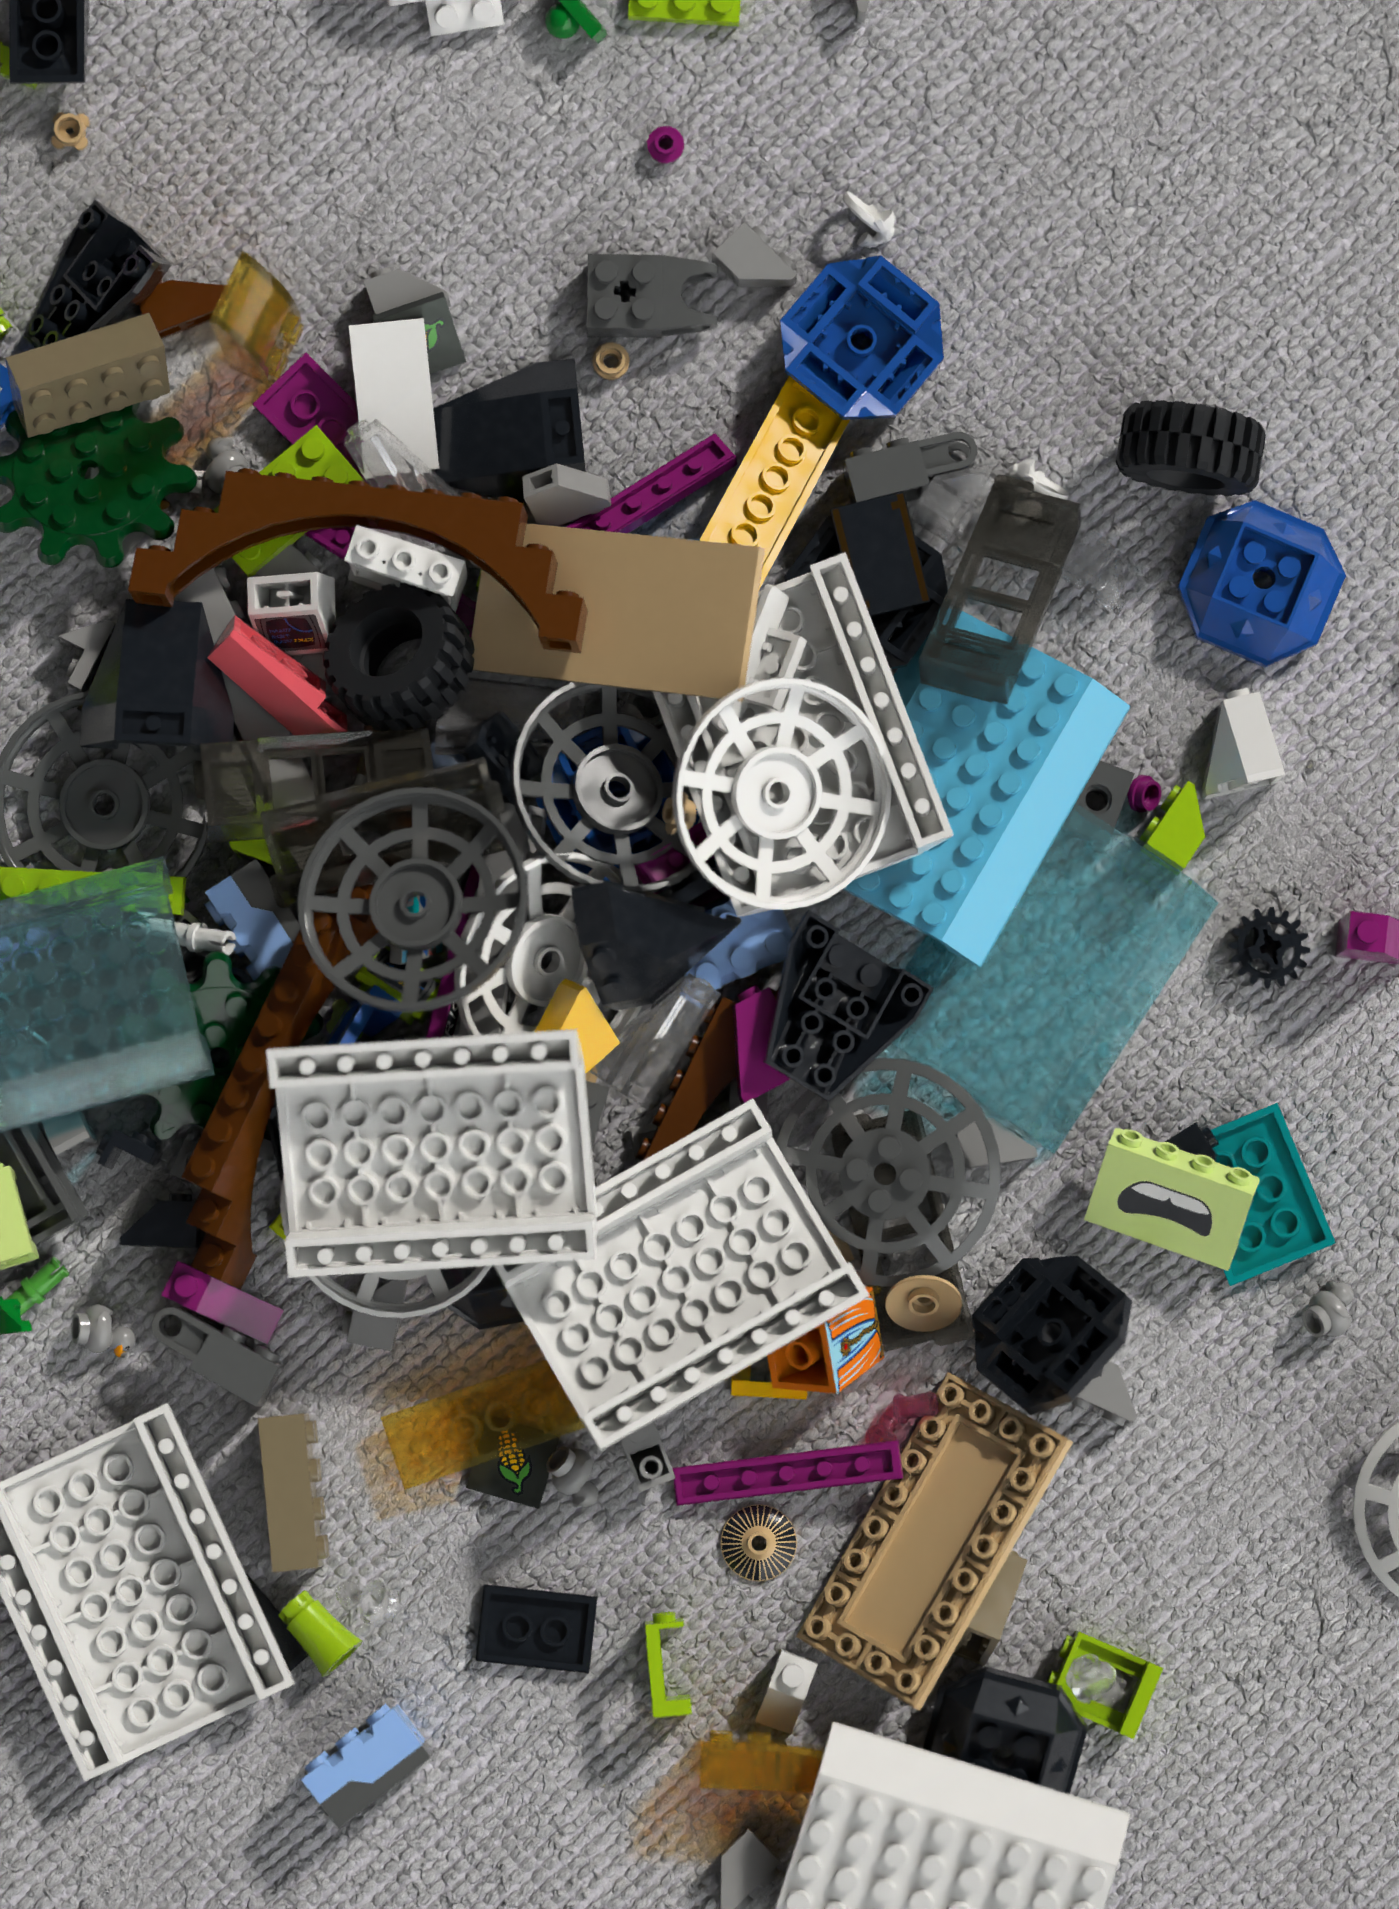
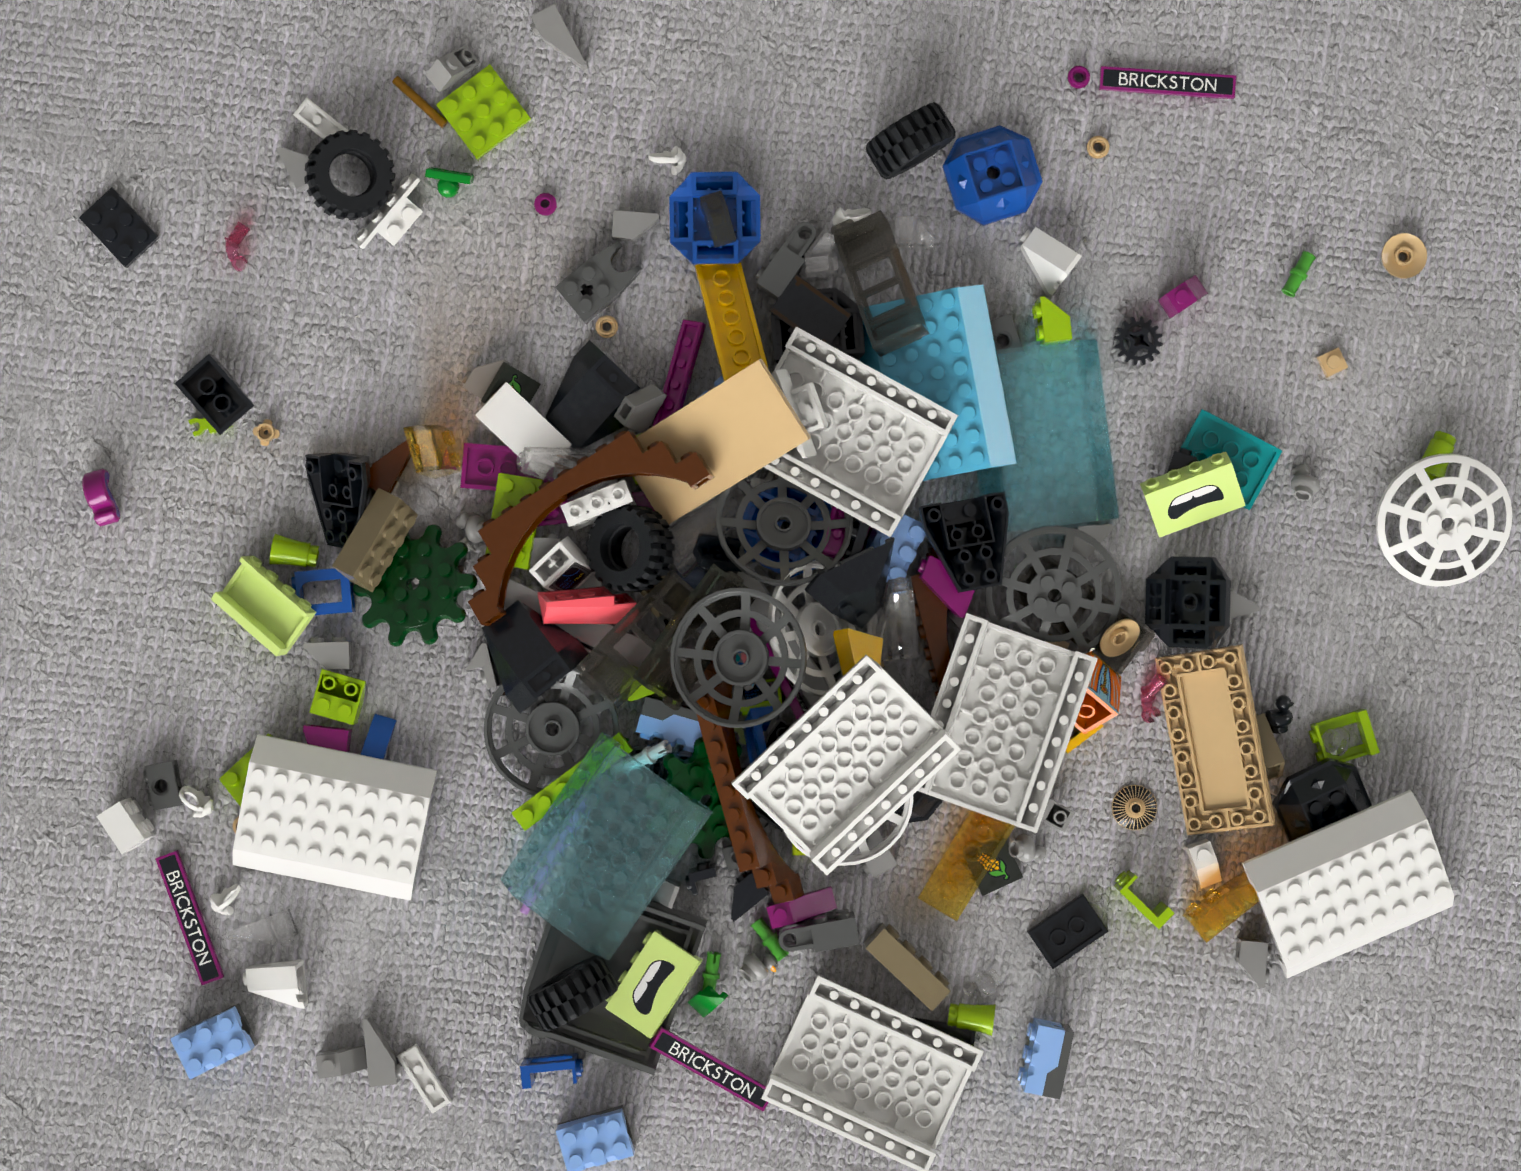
camera: 35 degrees left, 5 degrees up
(146, 1308) = (769, 938): none -> bright green pin
(689, 811) = (822, 512): tan plate -> none
(787, 1473) = (1122, 765): magenta tile -> none
(801, 794) = (875, 464): white dish -> none
(863, 339) = (717, 218): none -> clear smoke slope
(1042, 1586) = (1281, 717): none -> black animal
(1144, 794) = (1021, 318): magenta plate -> none

